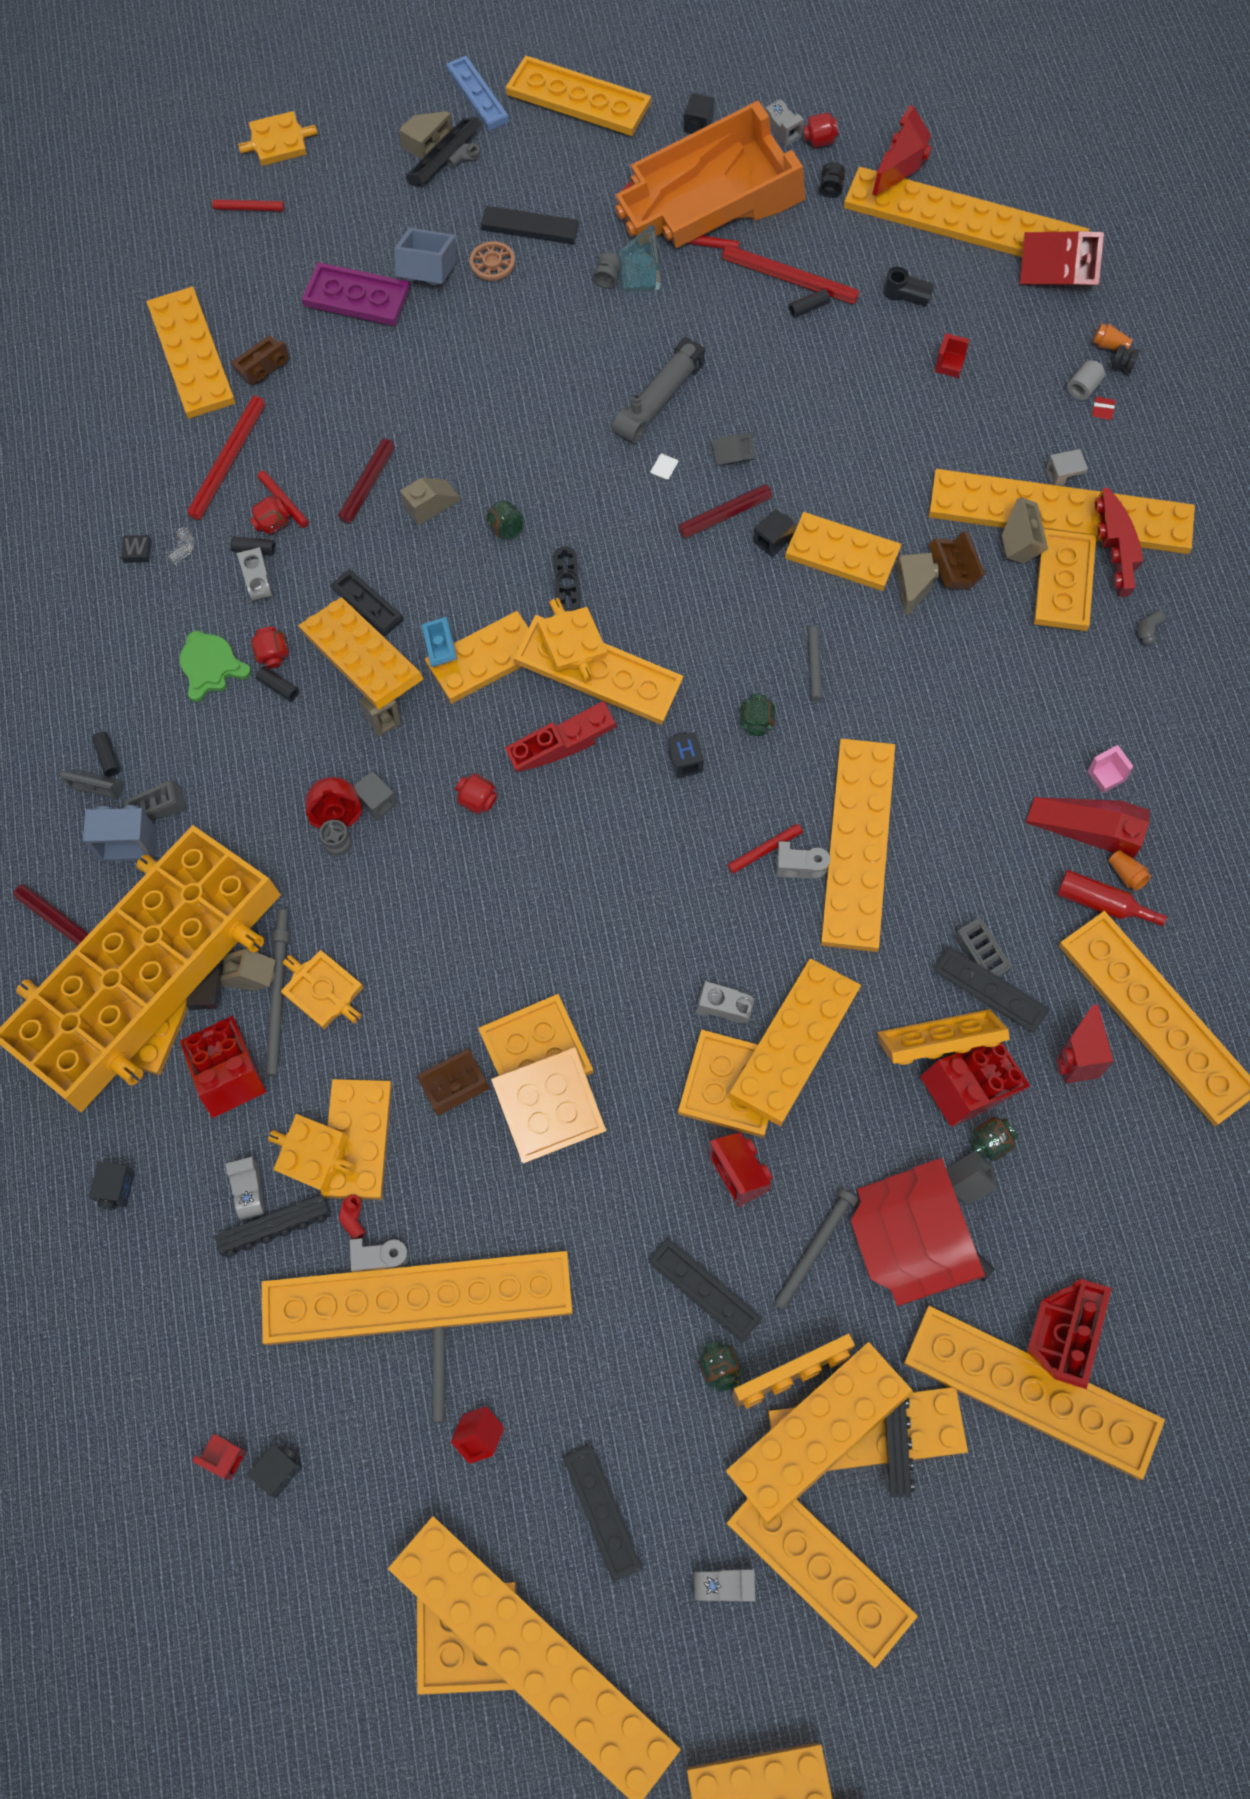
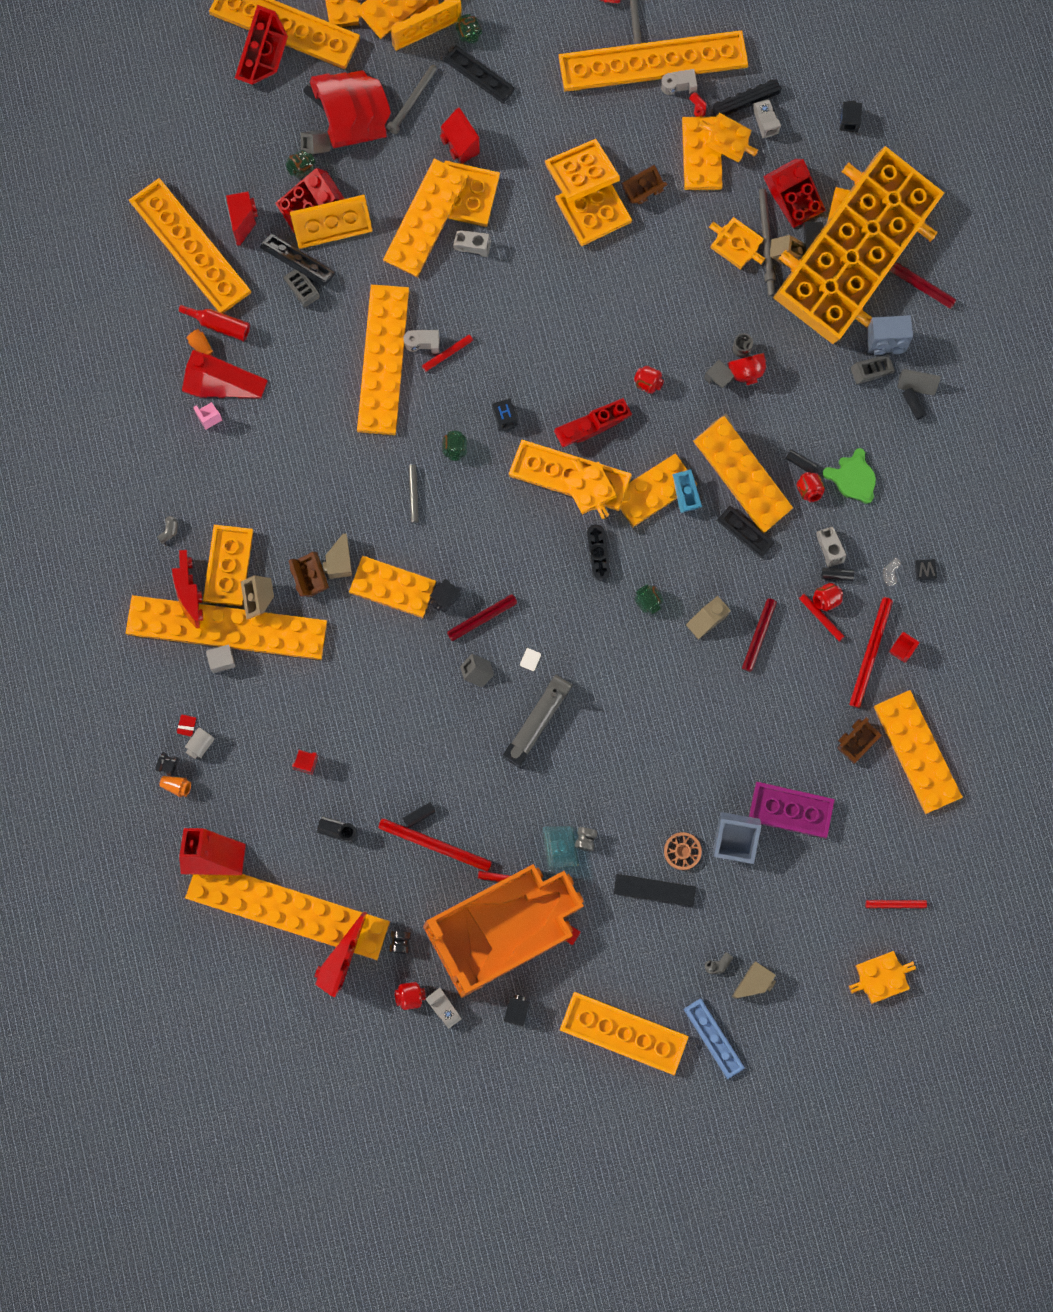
camera: 170 degrees right, 10 degrees up
(181, 456) = (904, 647): none -> red panel
(443, 150) = (735, 965): black tile -> none

